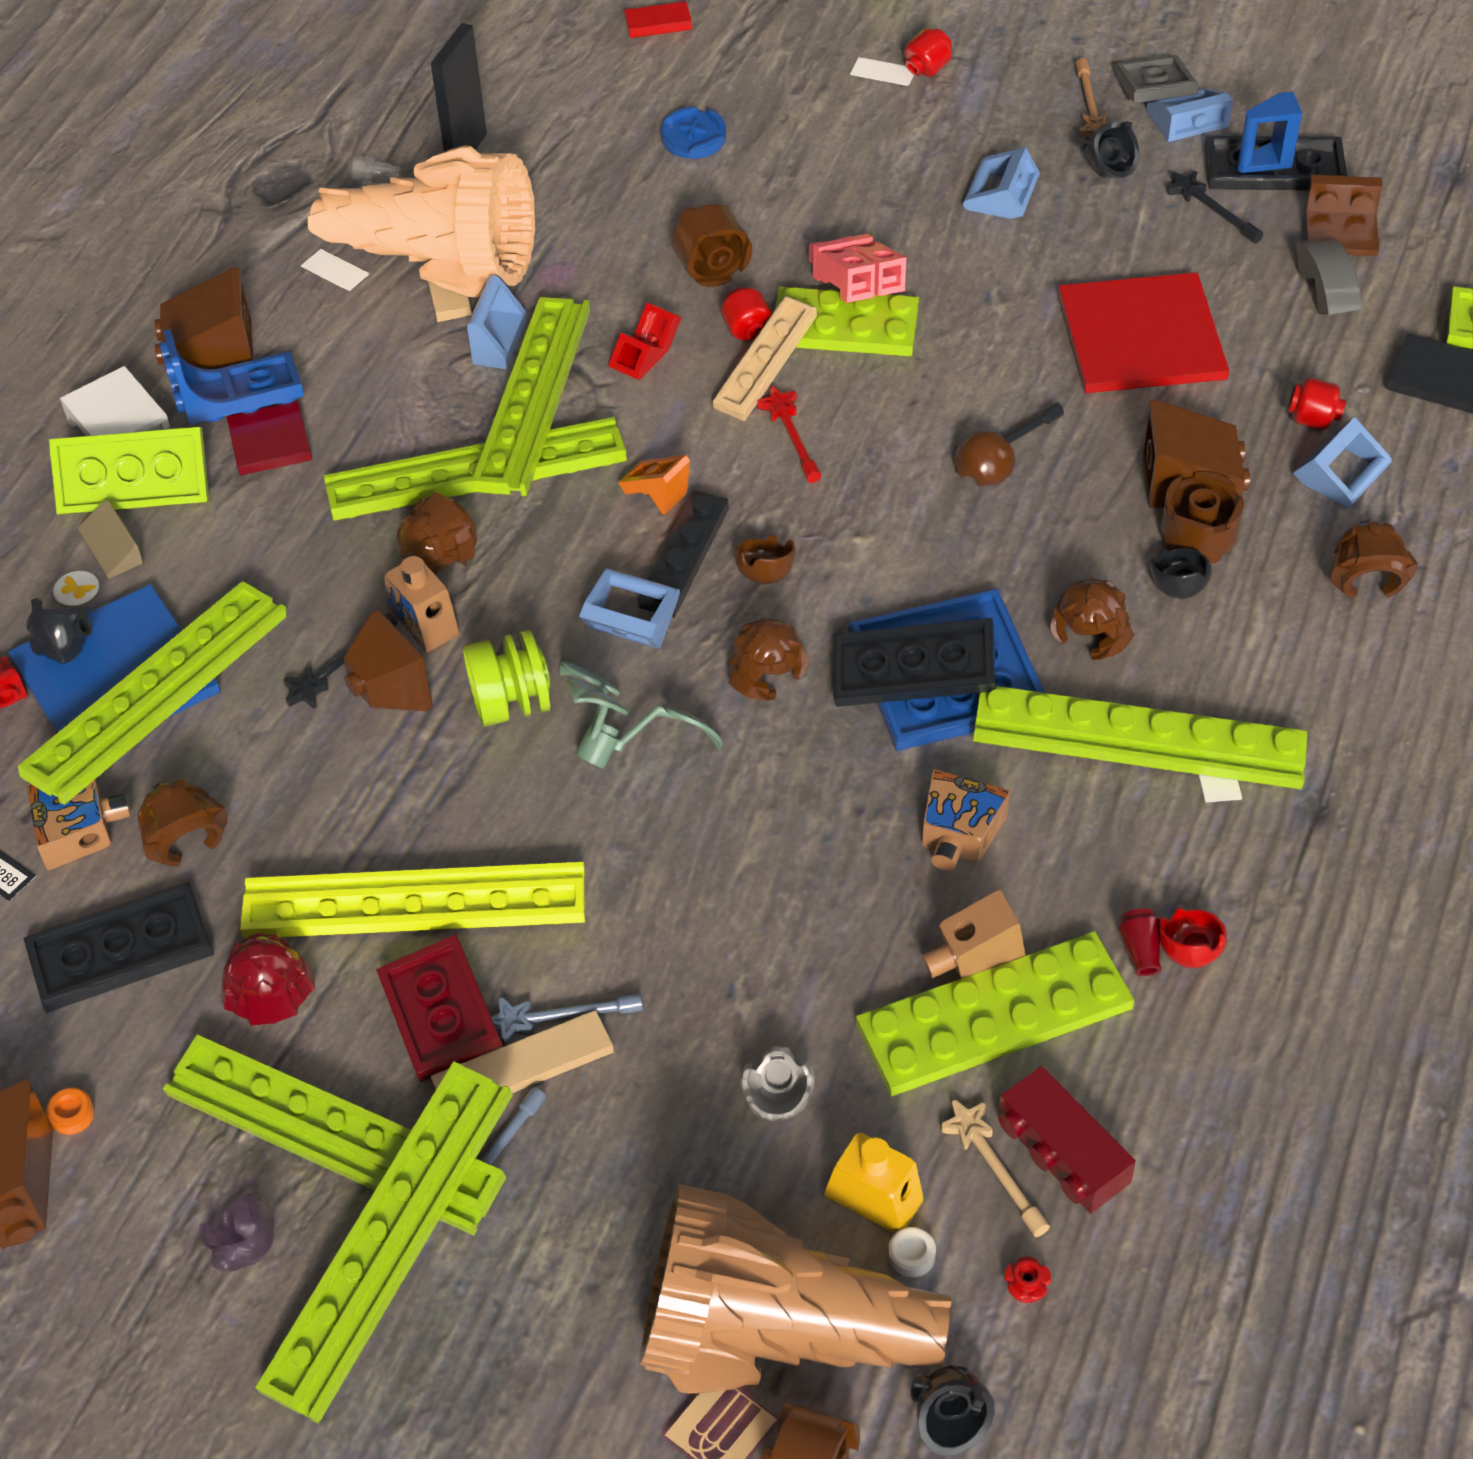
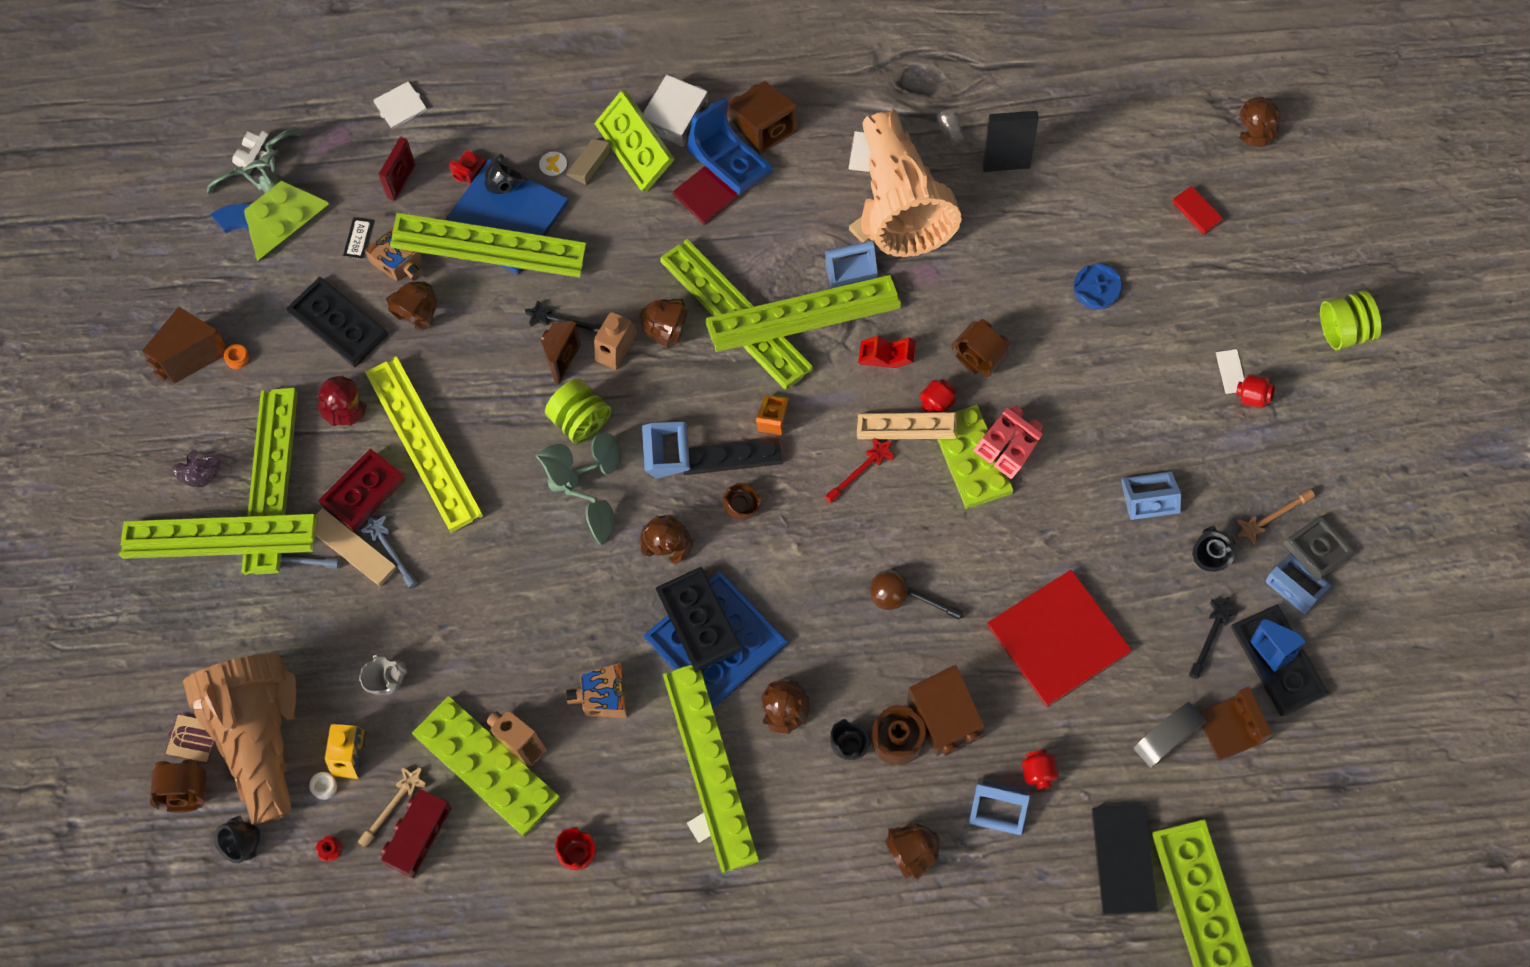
camera: 65 degrees right, 15 degrees up
(1142, 940) = (565, 819): dark red cone -> none

